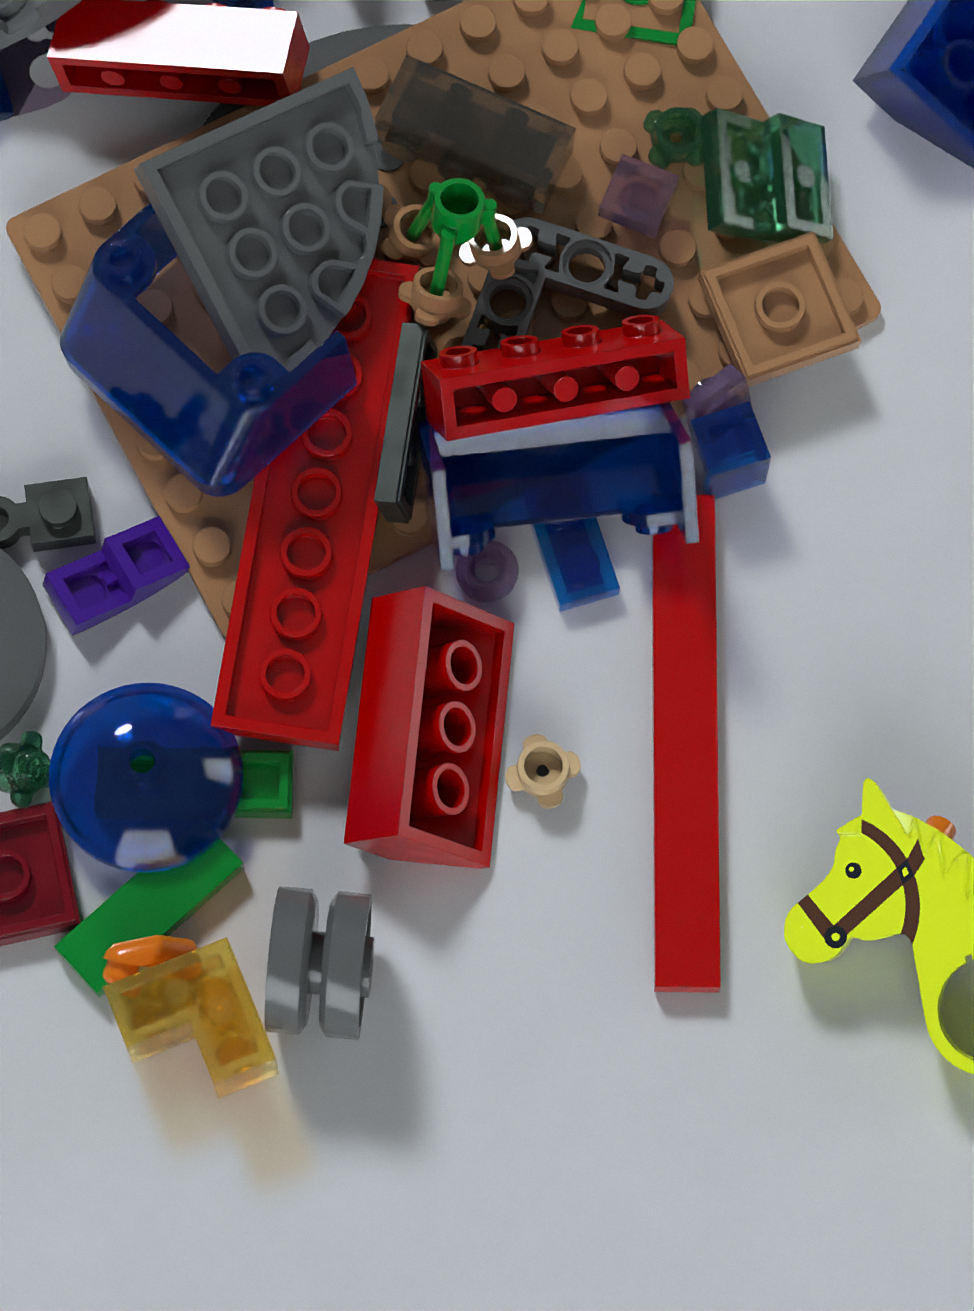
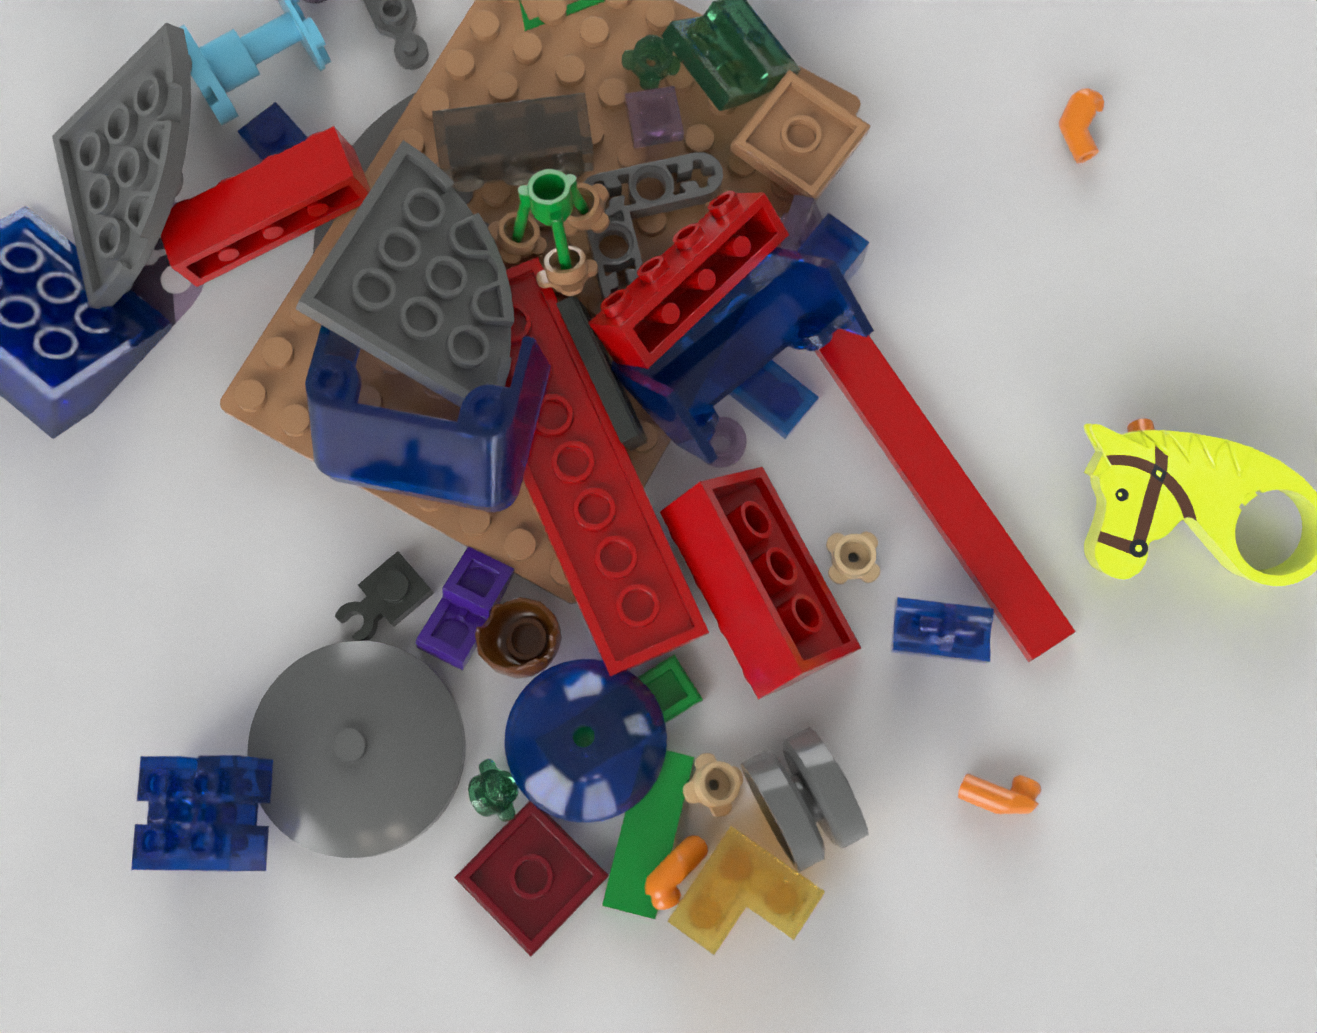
camera: 30 degrees left, 5 degrees up
(147, 635) = (519, 638): none -> reddish brown hair
(226, 898) = (728, 781): none -> tan plate
(523, 1102) = (999, 800): none -> orange arm
(578, 894) = (942, 630): none -> clear blue hips

